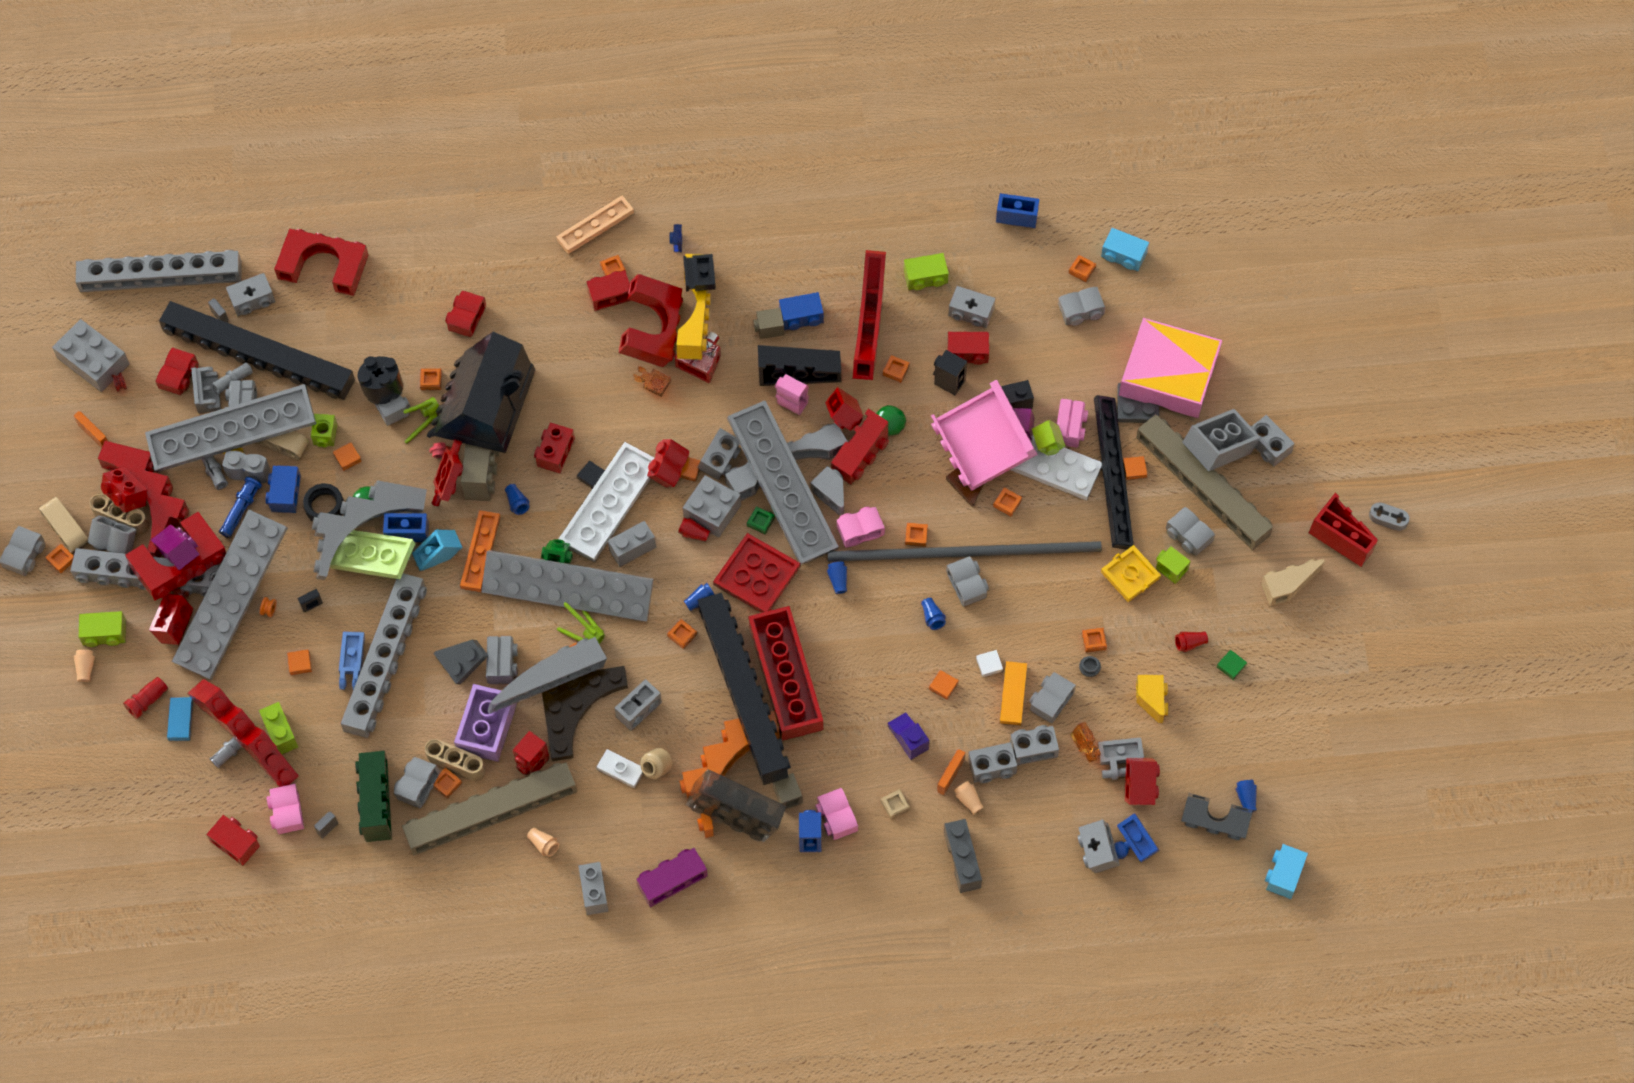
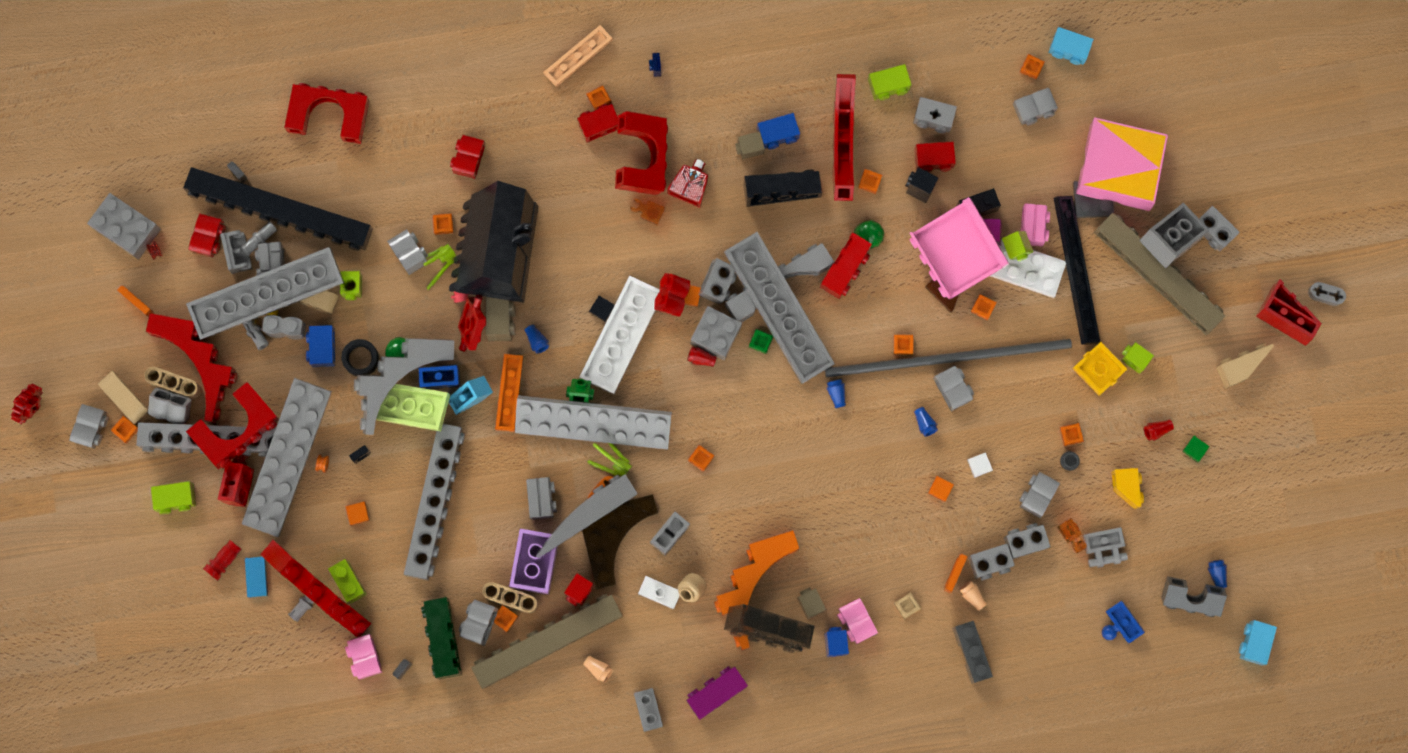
camera: 10 degrees left, 15 degrees up
(84, 663) = (161, 532): light nougat cone -> none
(124, 489) = (174, 362): red brick -> none
(168, 275) = (108, 137): light grey brick -> none
(176, 546) = (231, 419): magenta brick -> none
(233, 839) = (320, 690): red brick -> none
(244, 498) = (286, 357): blue pin -> none
(250, 294) = (255, 153): light grey brick -> none
(347, 456) = (375, 307): orange tile -> none
(351, 657) = (404, 506): medium blue hinge -> none
(380, 379) = (398, 235): black brick -> none
(461, 659) = (505, 501): dark grey wing -> none
(554, 447) = (566, 285): red brick -> none
(632, 543) = (647, 376): light grey brick -> none
(691, 335) = (681, 169): yellow arch -> none
(699, 272) = (682, 104): black plate -> none
(701, 592) = (714, 422): blue cone -> none
(743, 689) = (763, 512): black brick -> none
(756, 574) = (763, 395): red plate -> none
(786, 673) = (799, 491): red brick -> none
(792, 394) = (778, 218): bright pink brick -> none
(829, 489) = (822, 307): light grey slope -> none
(844, 409) = (828, 230): red brick -> none
(860, 527) = (852, 342): bright pink brick -> none
(909, 735) = (914, 540): dark purple arch -> none
(1013, 693) = (1003, 492): light orange tile -> none
(1017, 210) = (969, 14): blue brick -> none
(1105, 855) = (1092, 623): light grey brick -> none
(1135, 467) = (1095, 263): orange tile -> none
(1141, 781) = (1125, 571): red brick -> none
(1189, 531) = (1150, 324): light grey brick -> none

